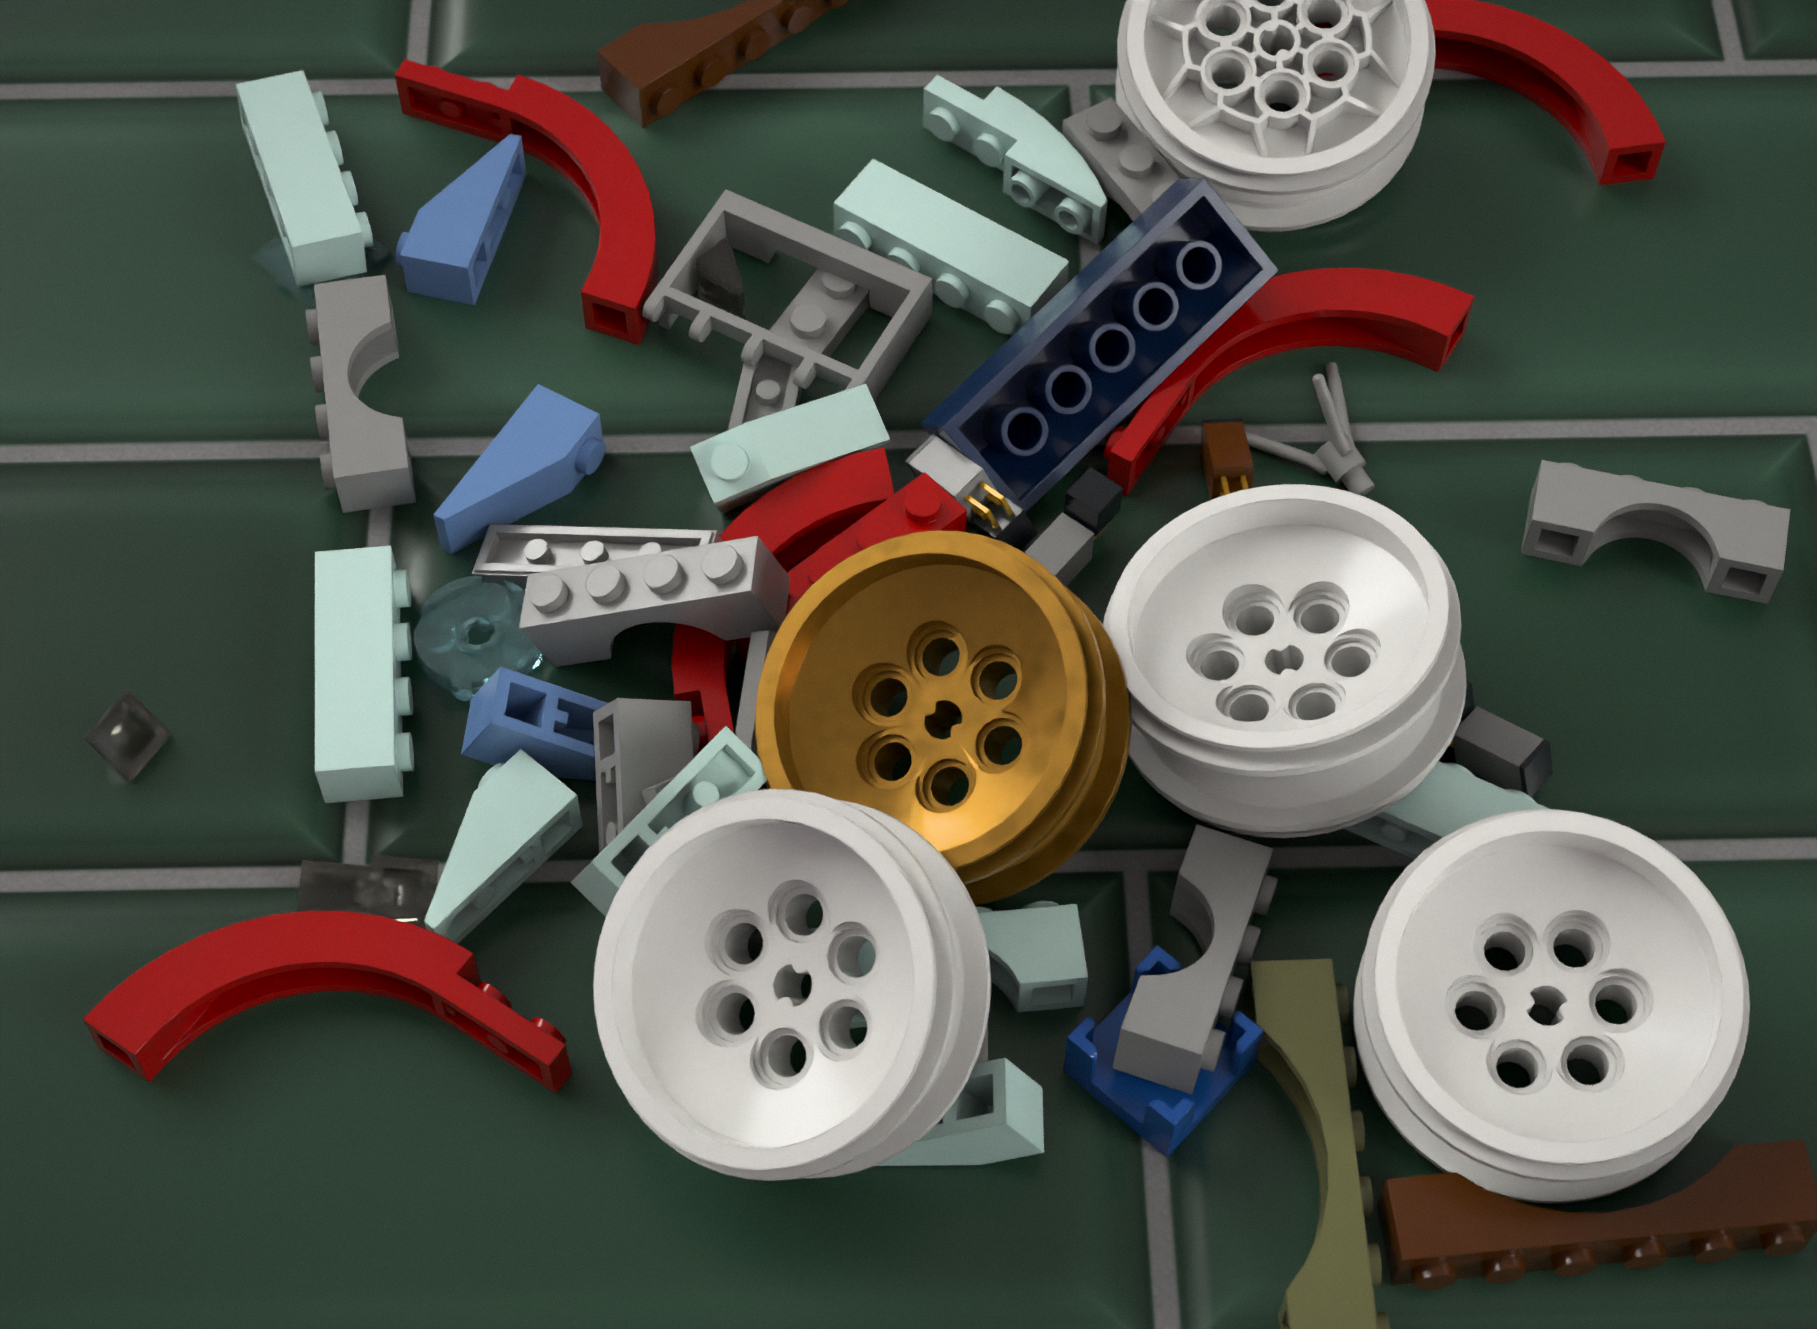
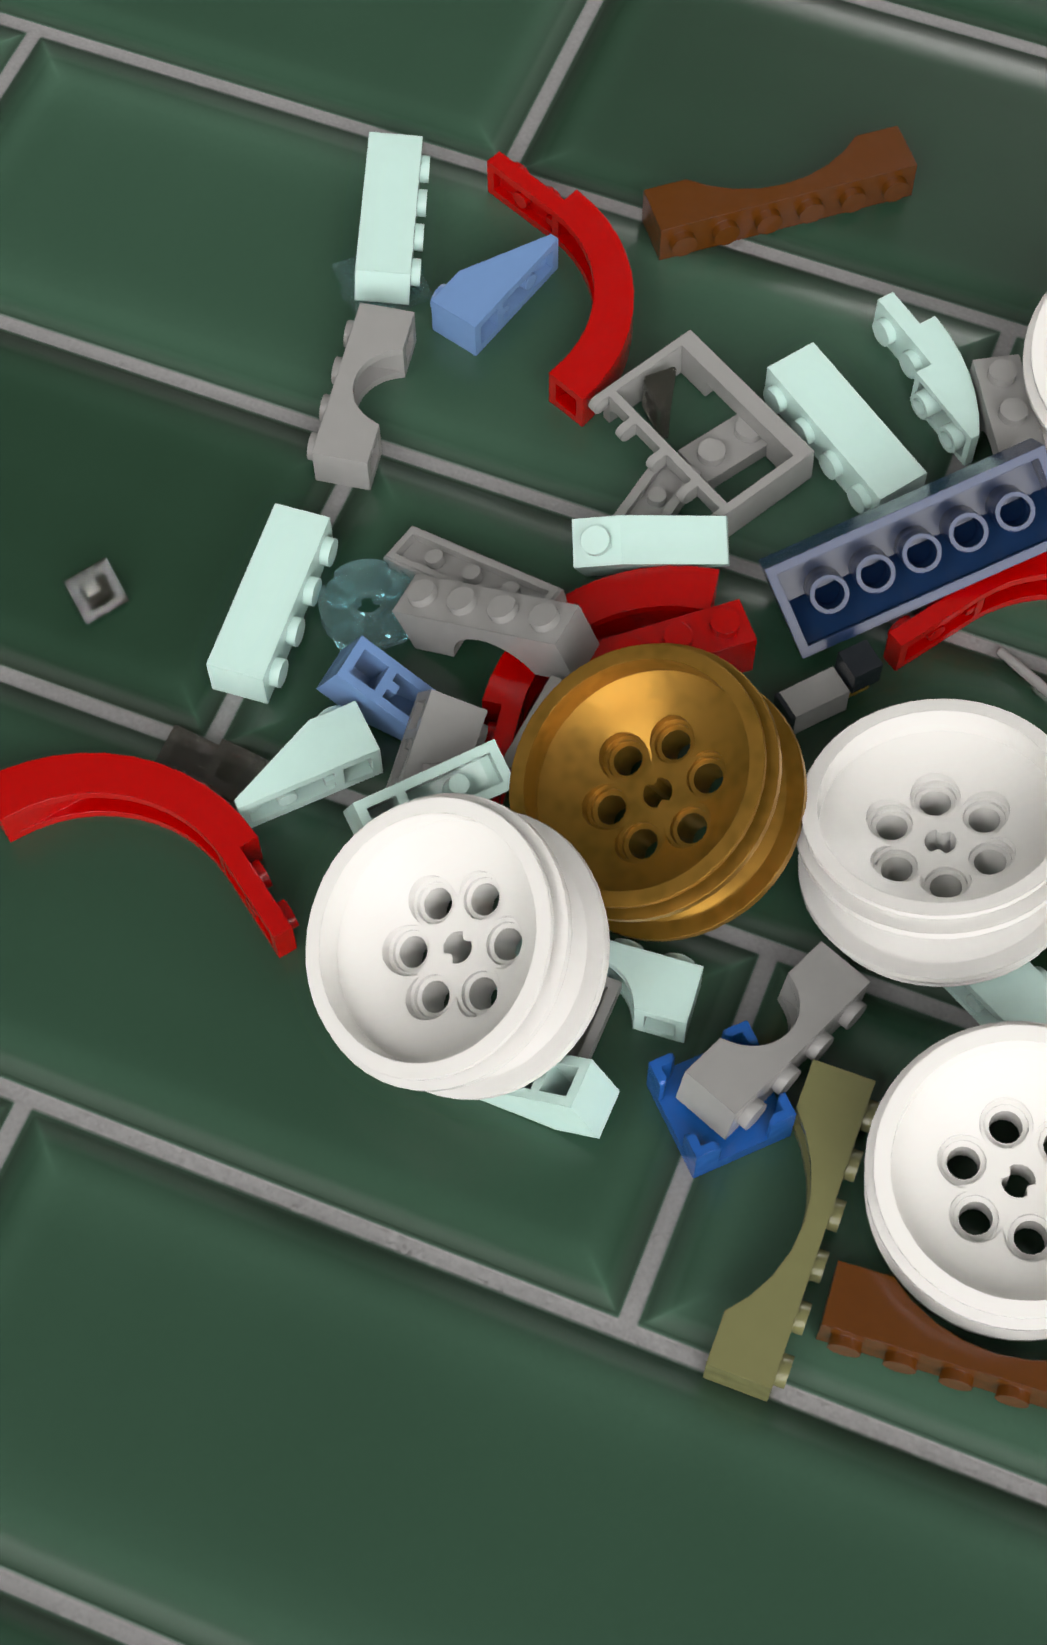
camera: 25 degrees right, 5 degrees up
(524, 468) = (452, 493): medium blue slope -> none
(971, 487) = (772, 630): piece -> none
(1225, 457) = (980, 669): reddish brown piece -> none

